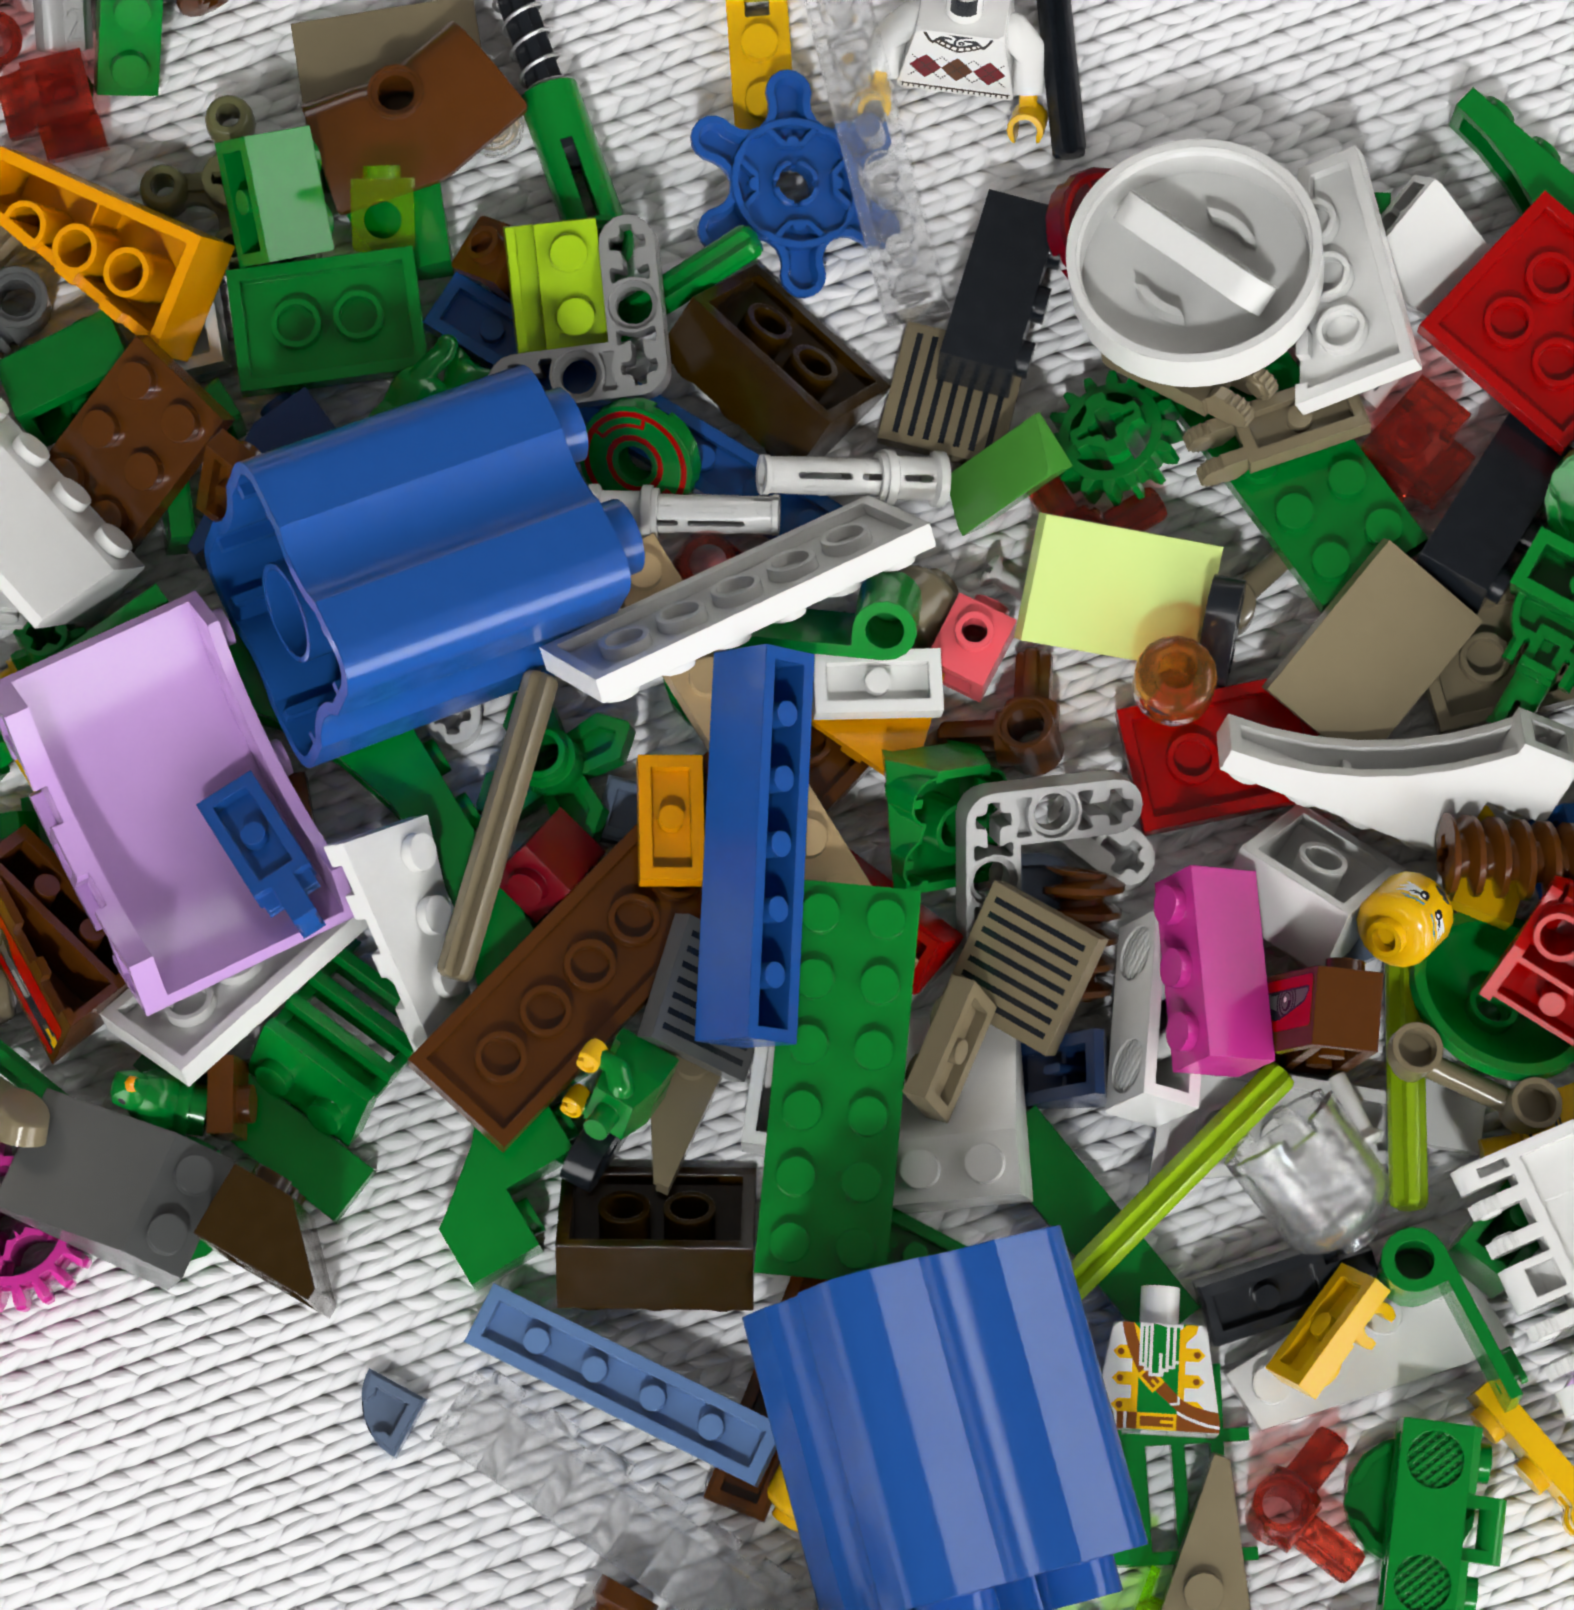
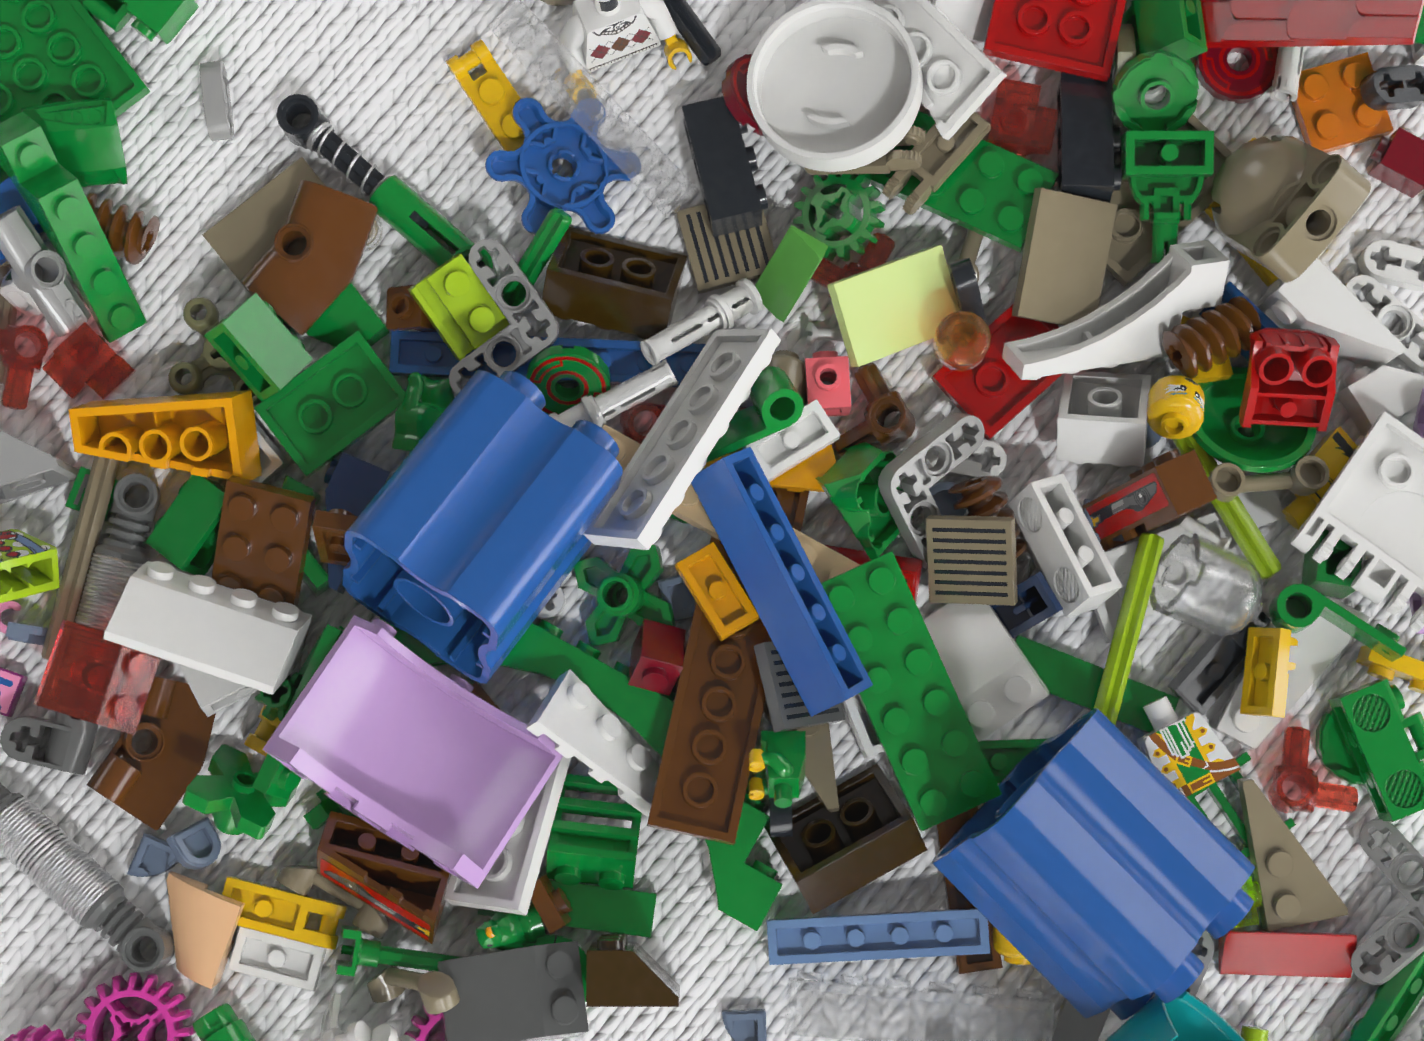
camera: 35 degrees left, 5 degrees up
(263, 851) = (487, 748): blue hinge -> none
(377, 185) = (319, 303): clear neon green bracket -> none
(497, 826) = (617, 653): dark tan axle -> none
(949, 1049) = (956, 621): dark tan plate -> none
(1195, 253) = (833, 78): white beam -> none
(1214, 971) = (1086, 501): dark pink brick -> none

